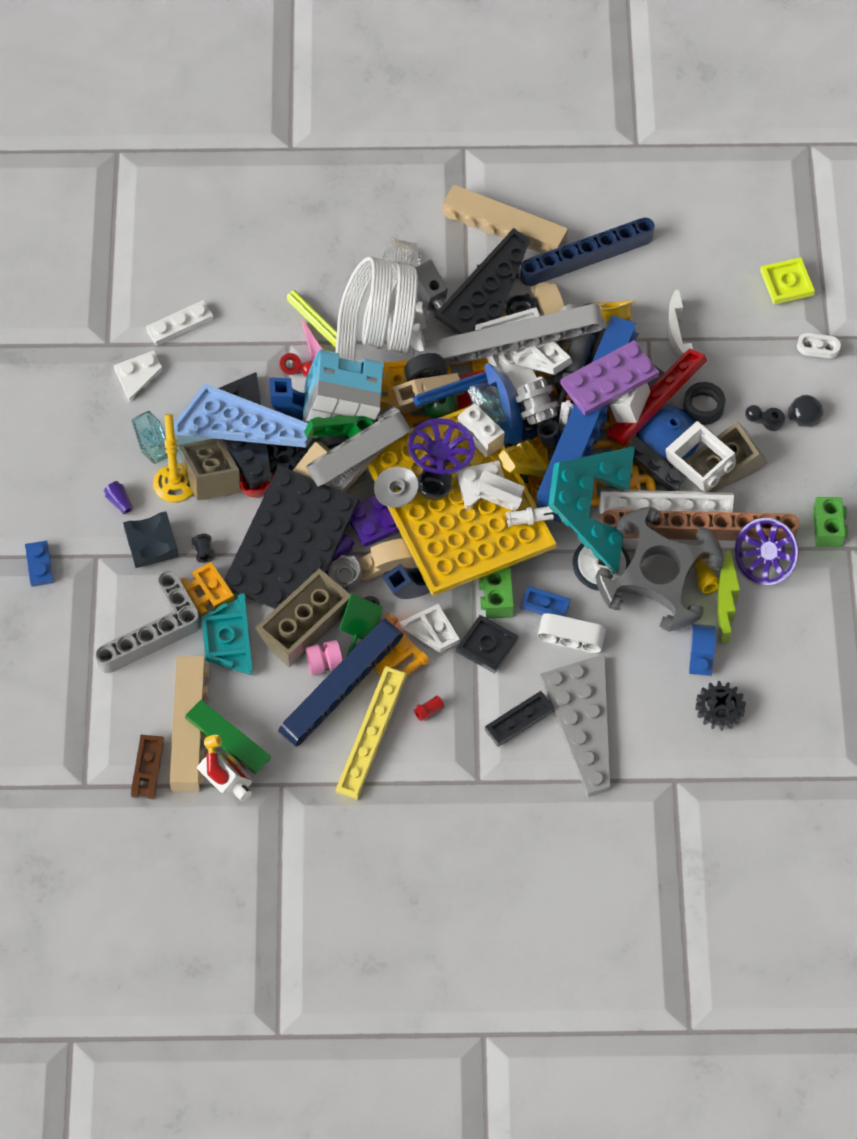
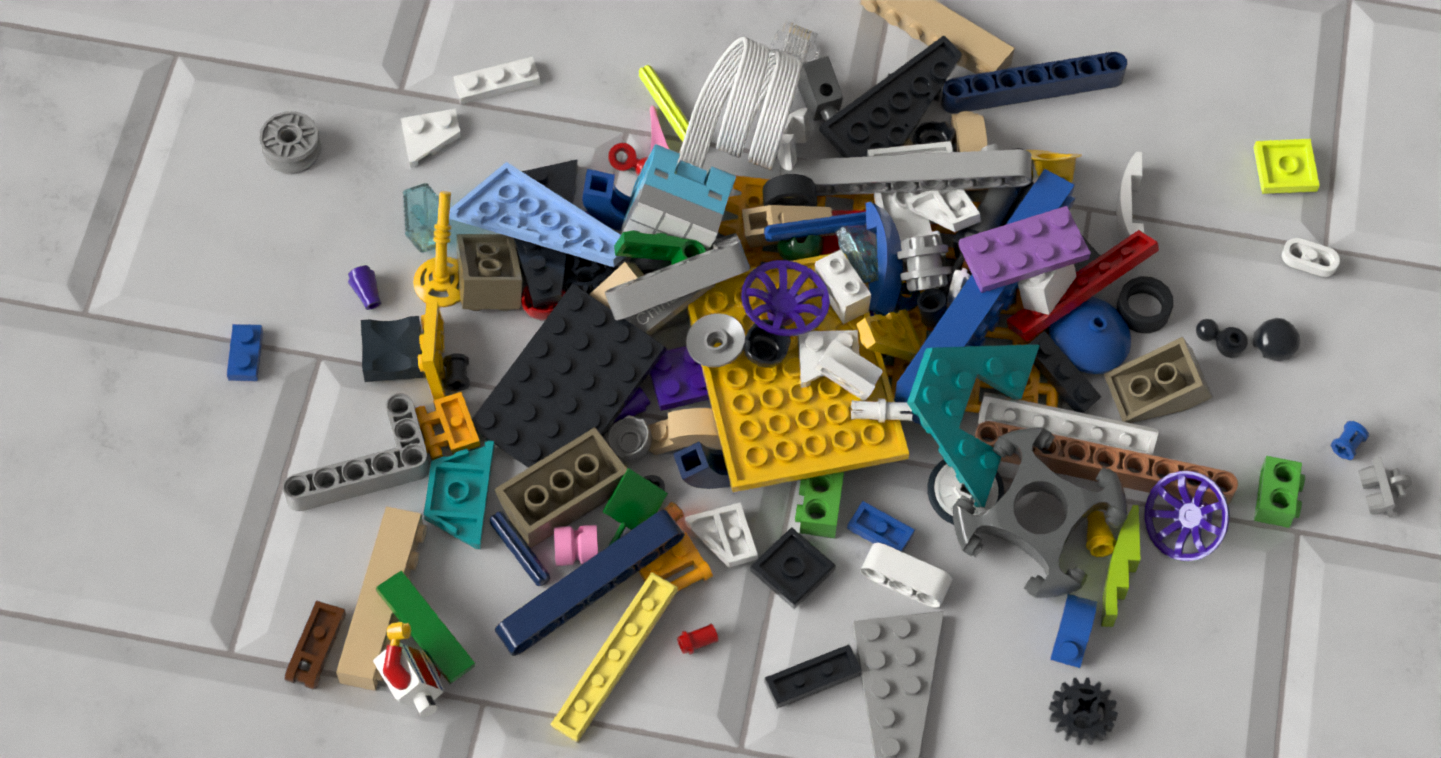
camera: 10 degrees right, 0 degrees up
(23, 401) = (290, 142): none -> light grey wheel
(180, 530) = (432, 347): none -> yellow wing
(282, 668) = (519, 548): none -> dark blue axle
(687, 441) = (1109, 352): white window -> none

